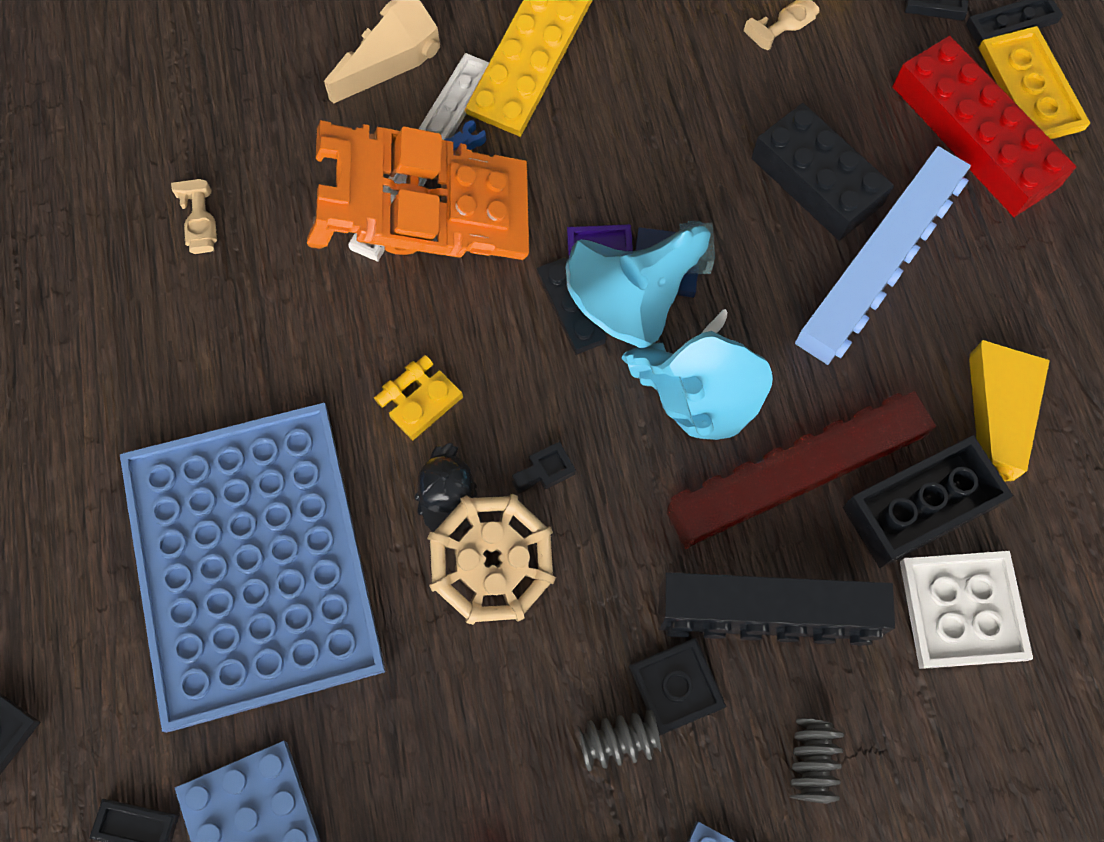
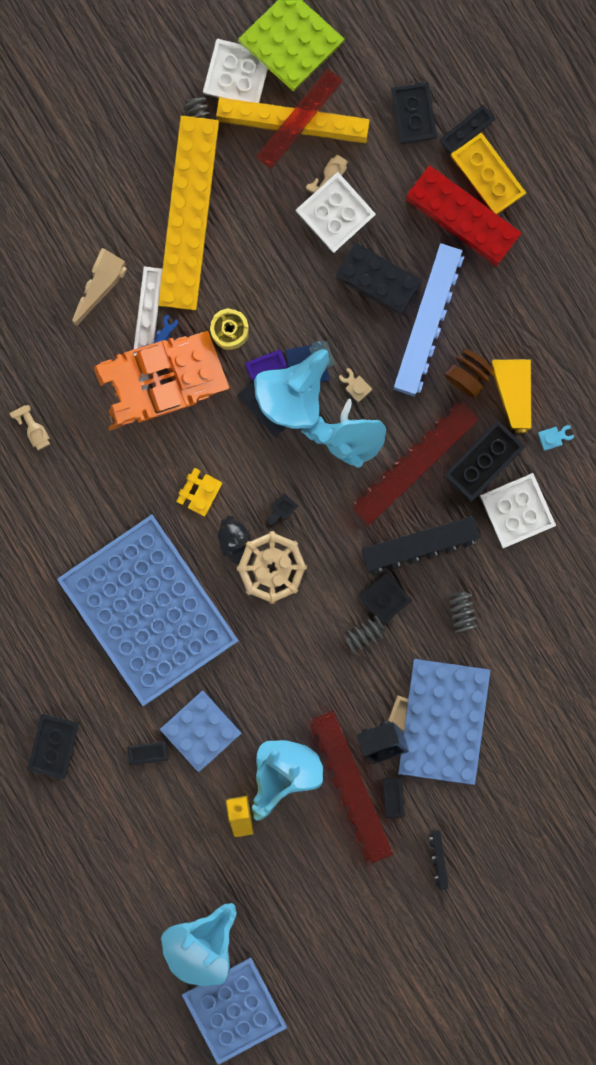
camera: 15 degrees left, 15 degrees up
(561, 167) = (233, 319): none -> light yellow brick
(740, 318) = (356, 387): none -> tan plate
(781, 63) = (335, 212): none -> white plate
(938, 348) = (466, 376): none -> reddish brown wheel
(1054, 505) = (552, 438): none -> medium azure plate

